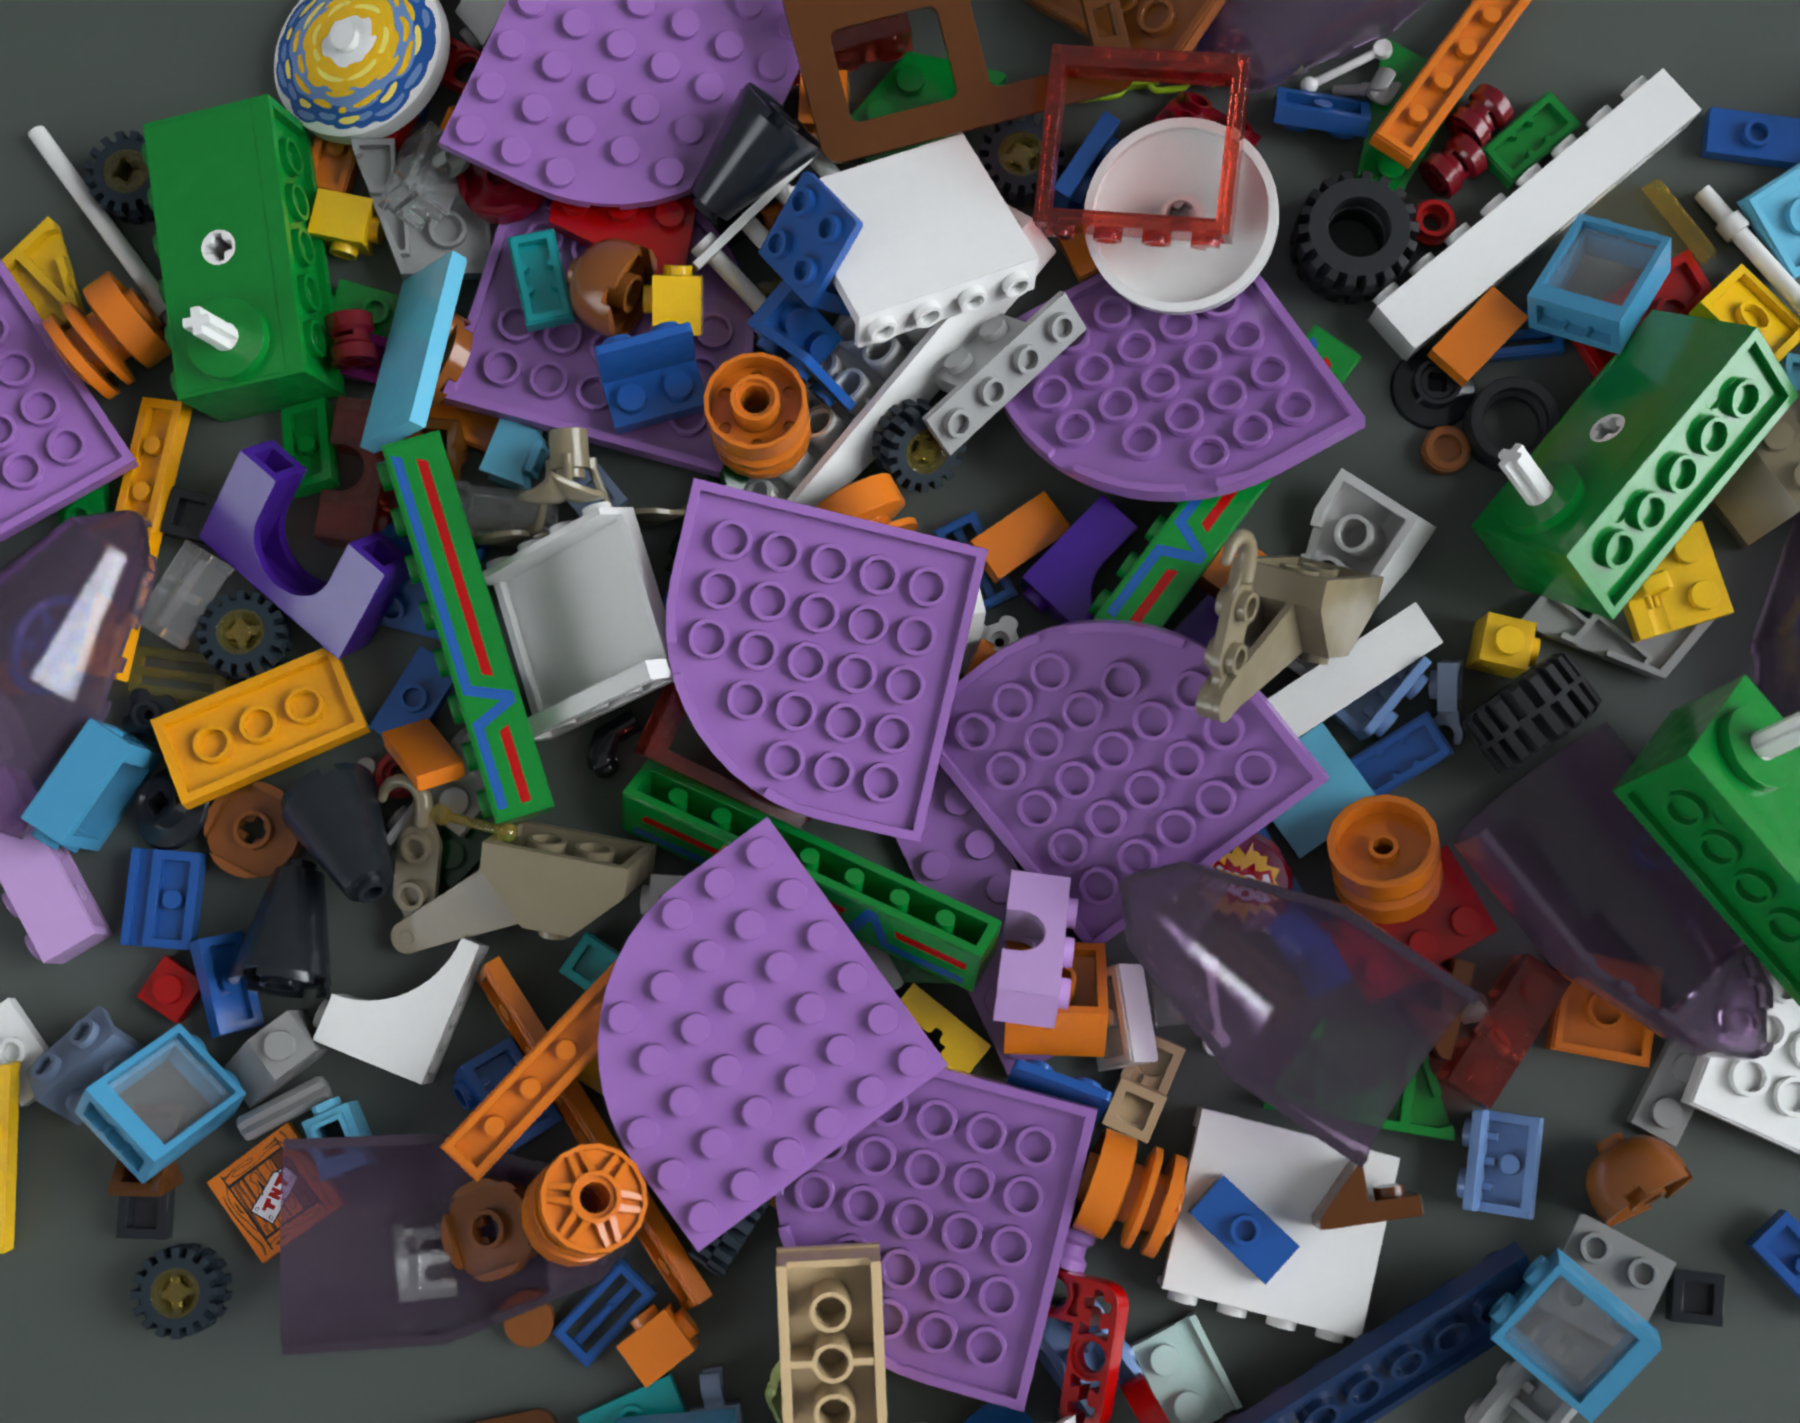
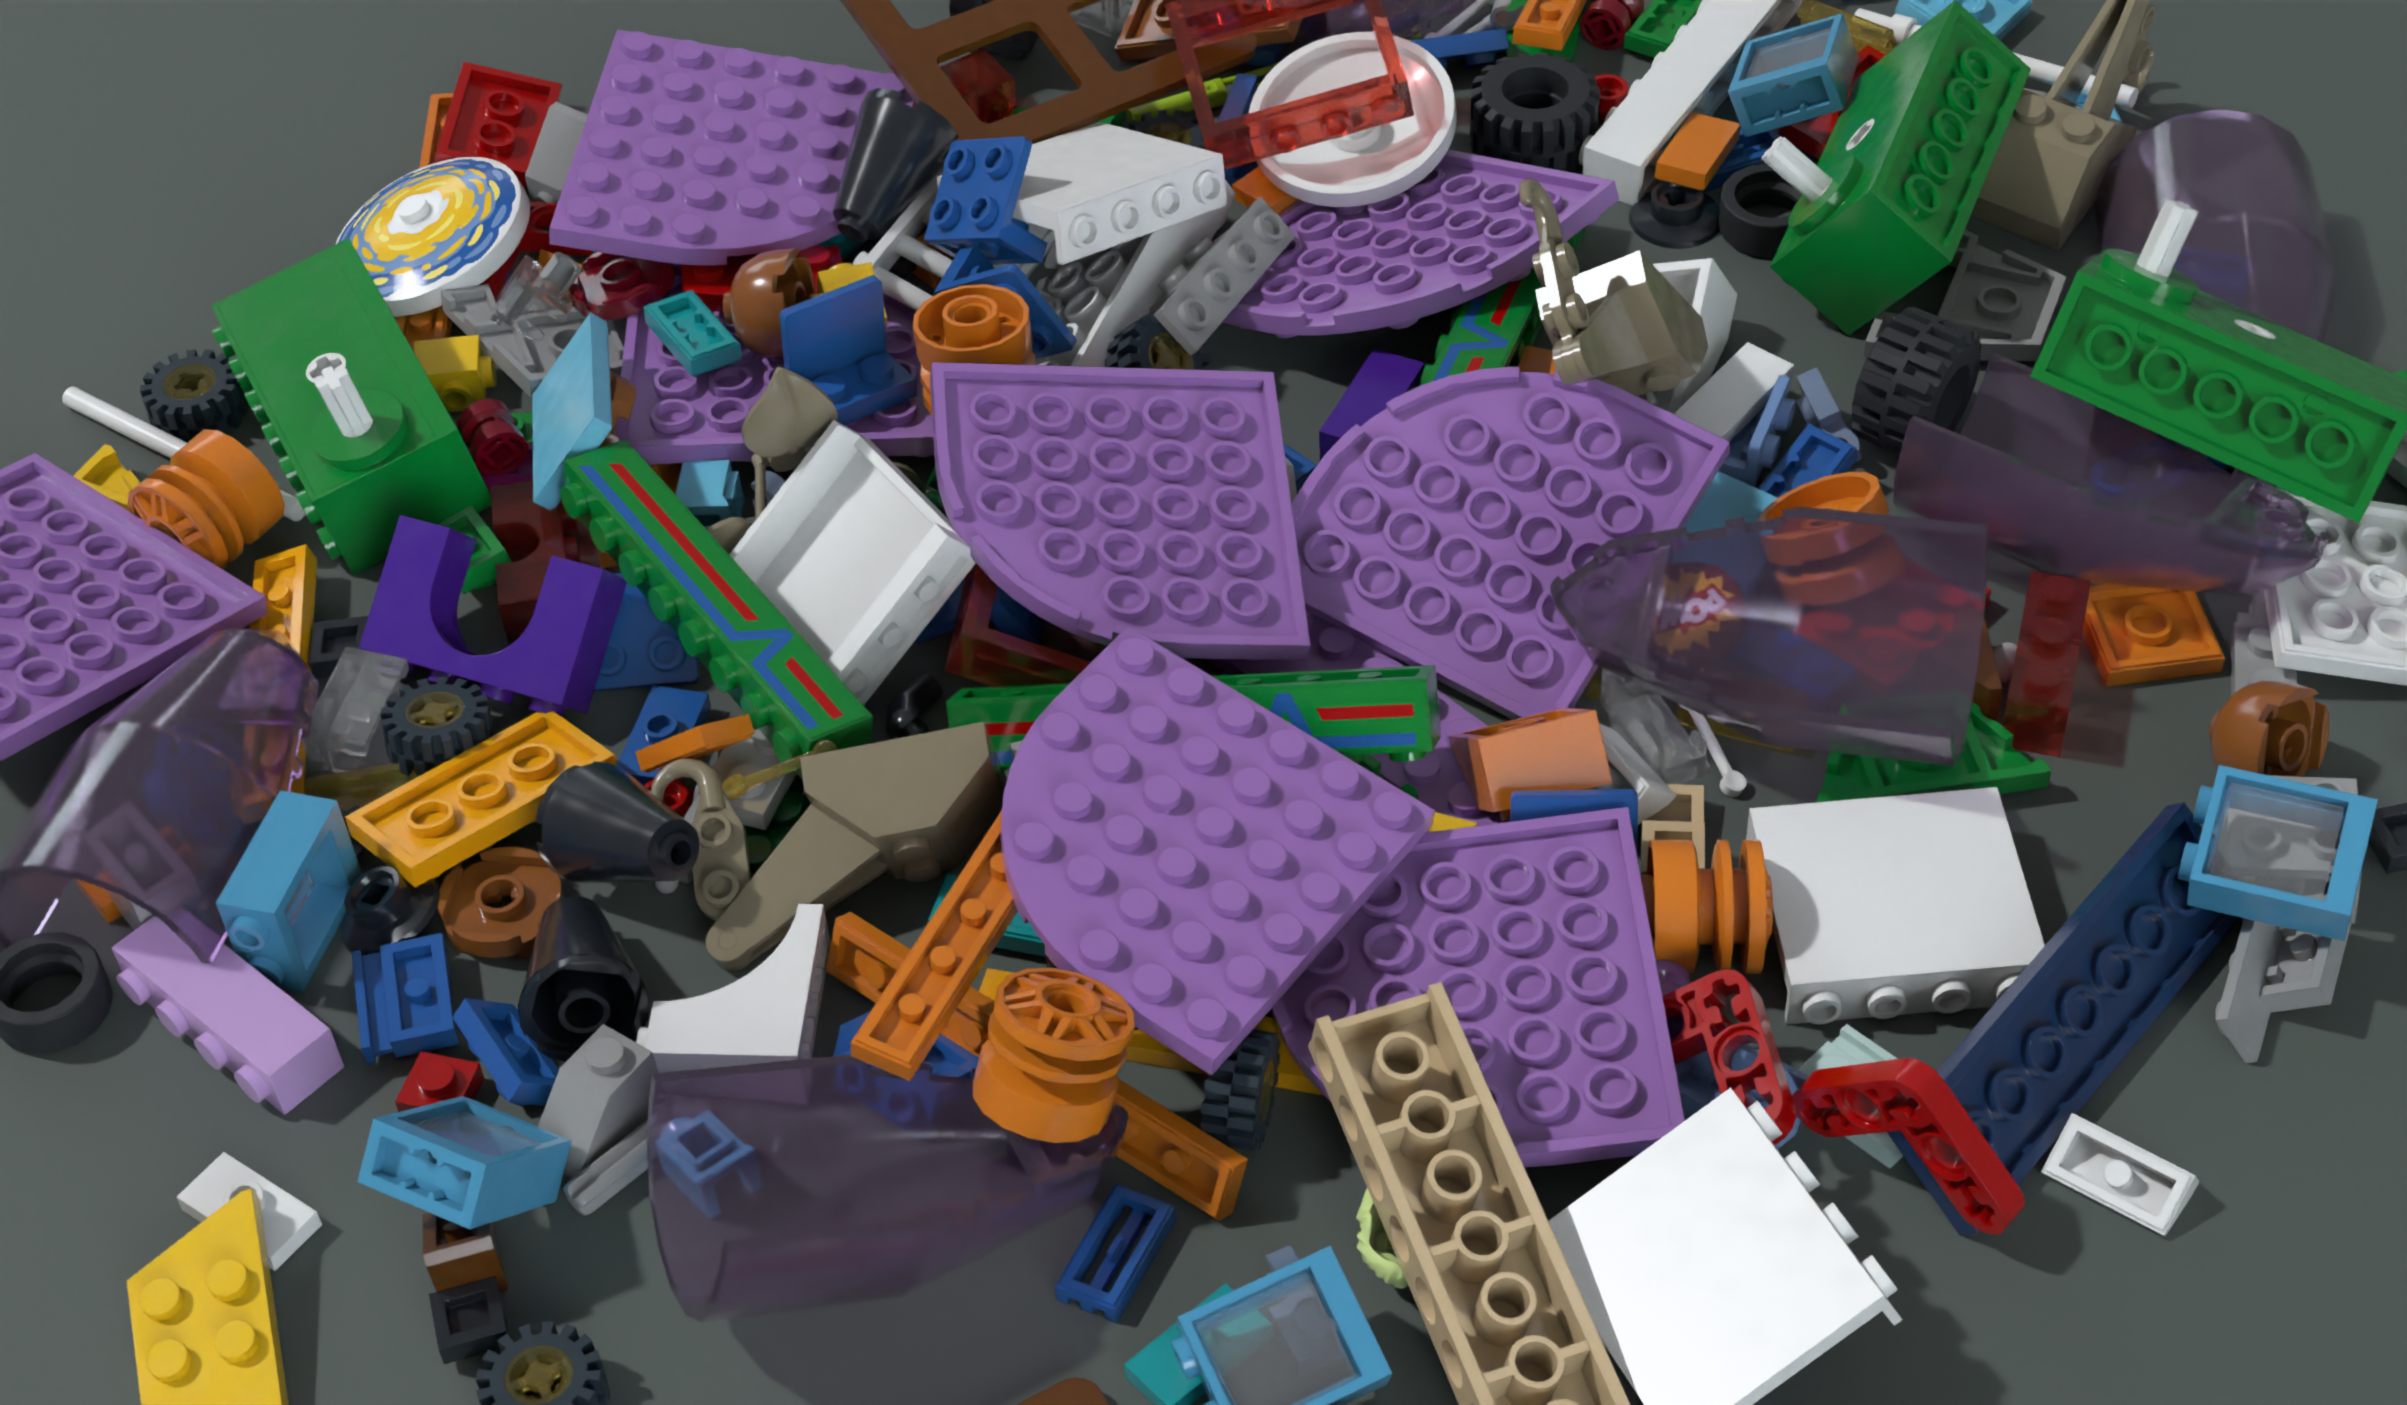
camera: 25 degrees left, 35 degrees down
(78, 1061) = (326, 1191): sand blue bracket -> none
(252, 1192) = (617, 1261): tile -> none
(421, 1273) = (857, 1193): clear hinge -> none
(463, 1226) = (933, 1141): dark orange plate -> none
(531, 1327) = (1021, 1289): dark orange tile -> none
(659, 1341) = (1198, 1246): orange brick -> none
(1021, 536) = (1303, 416): orange tile -> none
(1032, 980) = (1486, 689): lavender arch -> none
(1243, 1229) = (1855, 892): blue plate -> none
(1350, 1205) = (1978, 822): reddish brown slope -> none
(1445, 450) = (1716, 244): dark orange tile -> none
(1453, 165) = (1607, 47): dark red wheel -> none
(1501, 1163) = (2116, 776): medium blue bracket -> none
(1503, 645) = (1845, 354): yellow brick -> none
(1680, 591) = (2002, 270): yellow hinge -> none

